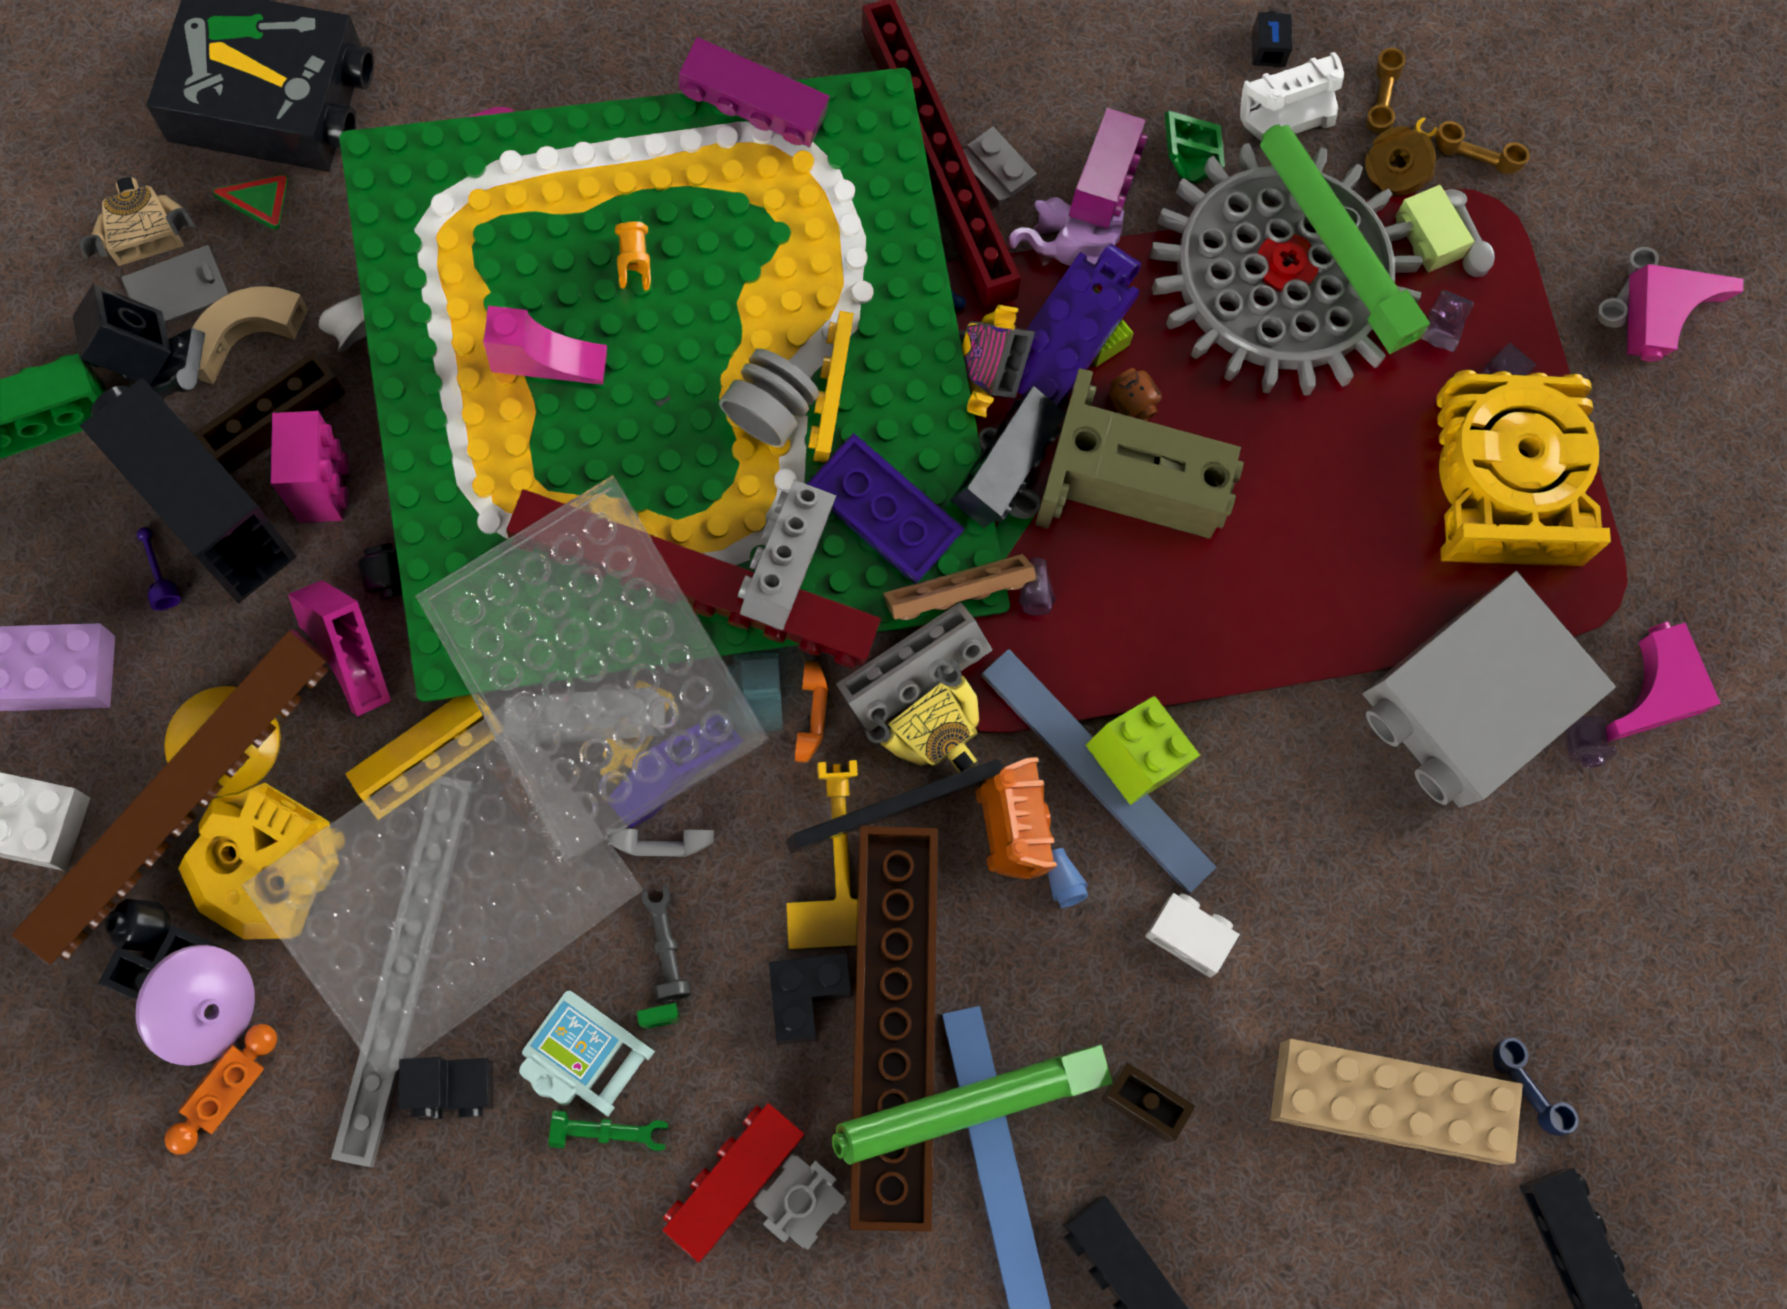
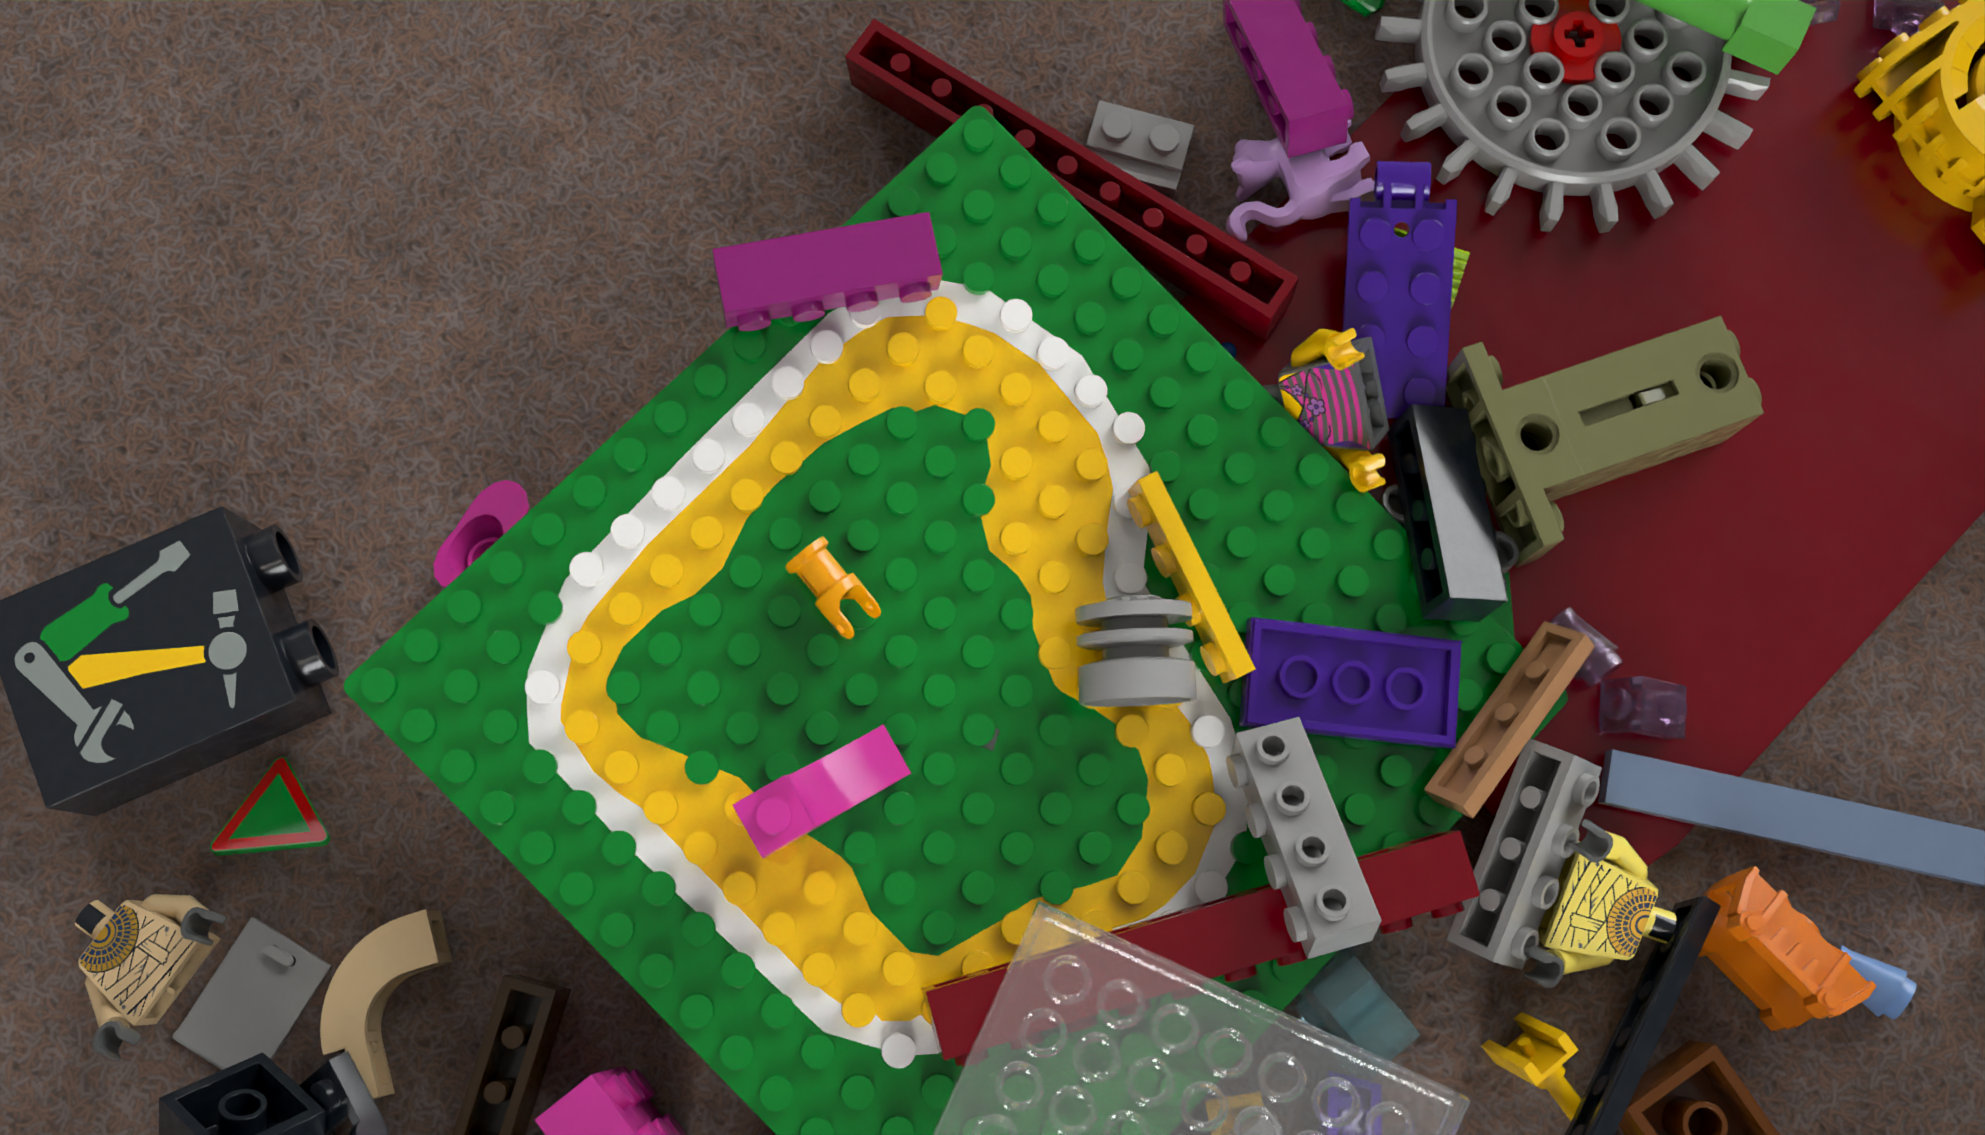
camera: 25 degrees left, 5 degrees up
(344, 322) = (510, 906): white piece -> none
(808, 743) = (1459, 1031): orange bar -> none
(1047, 642) = (1643, 707): none -> clear purple bracket
(1135, 394) = (1523, 328): dark orange head -> none
(1142, 750) = (1856, 764): lime brick -> none

